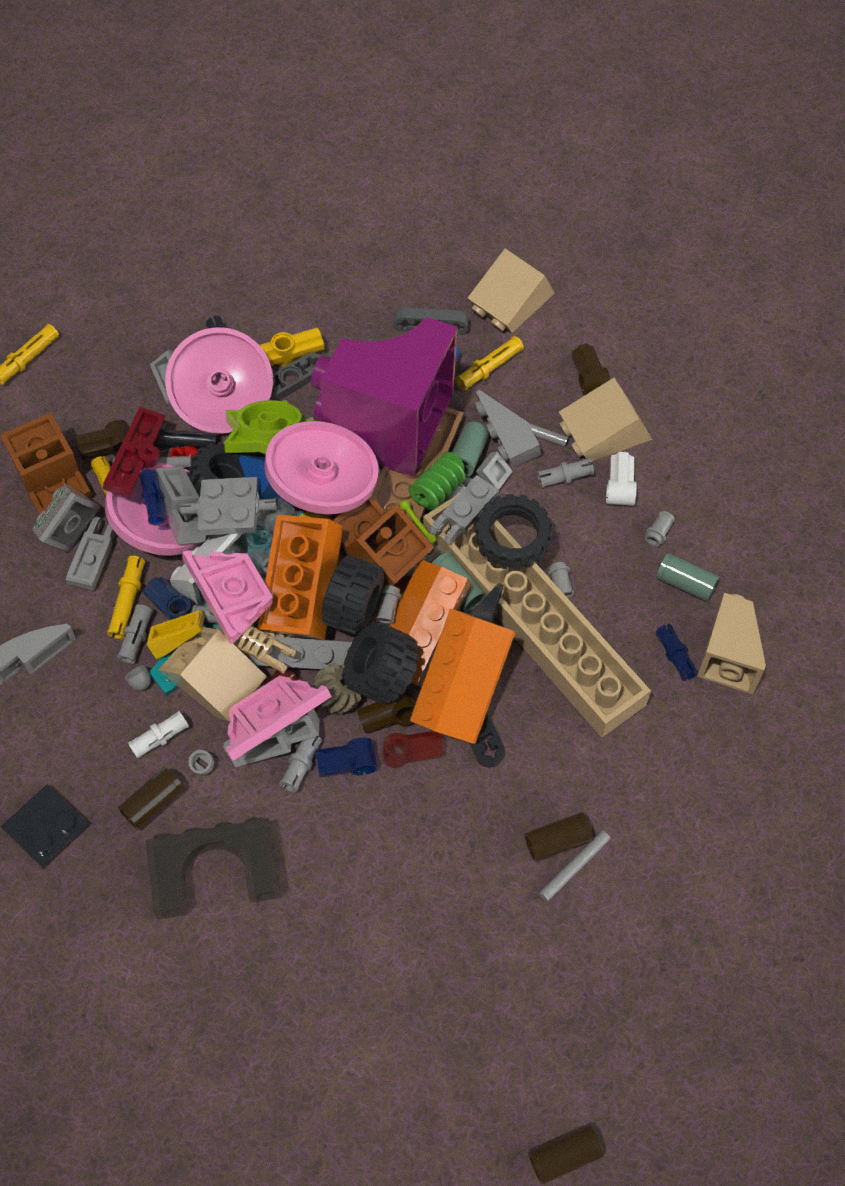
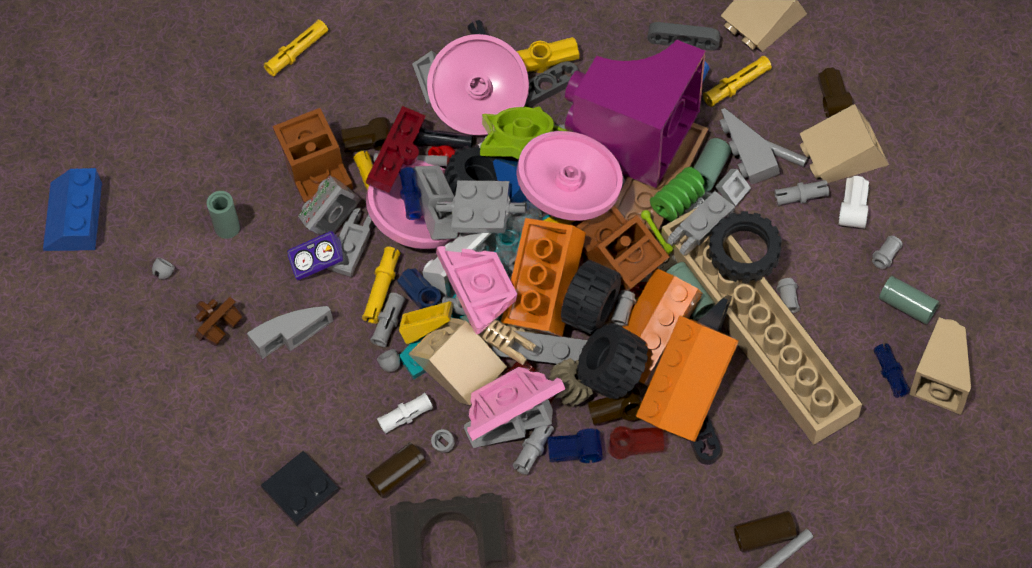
camera: 10 degrees right, 0 degrees up
(53, 569) = (315, 255): none -> slope

